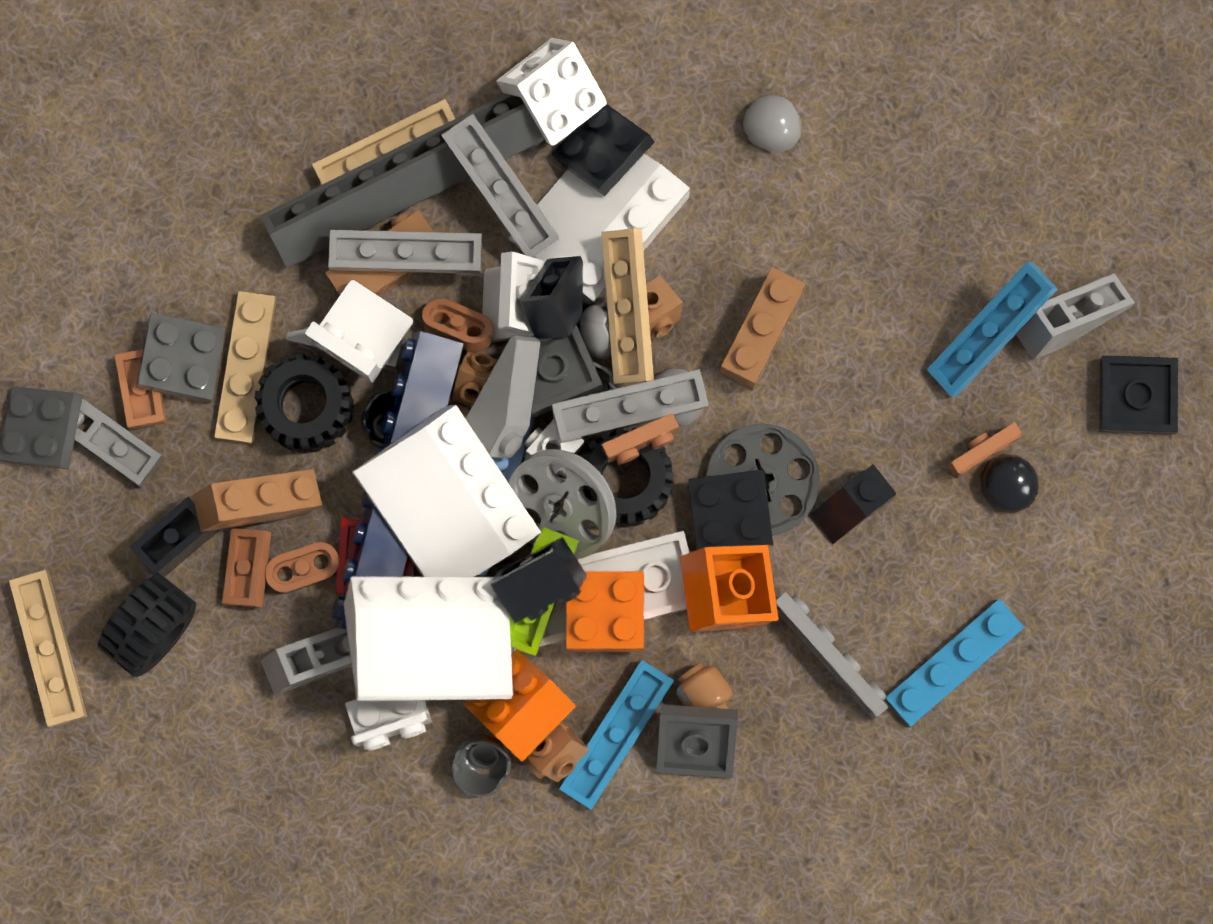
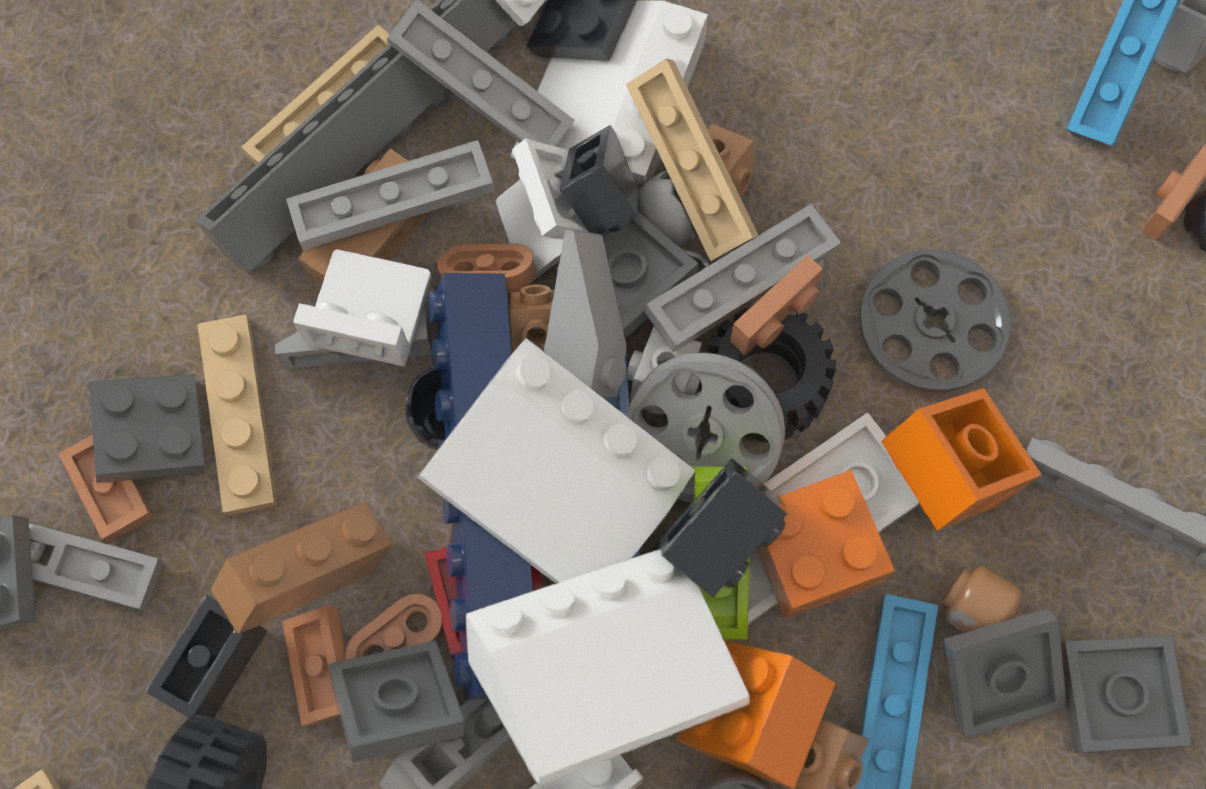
camera: 20 degrees left, 10 degrees down
(289, 611) = (395, 701): none -> dark grey plate
(295, 372) = (304, 392): black tyre -> none
(731, 510) = (914, 364): black plate -> none
(762, 328) = (858, 146): medium nougat brick -> none
(773, 784) = (1124, 694): none -> dark grey plate
(853, 504) = (1060, 305): black slope -> none

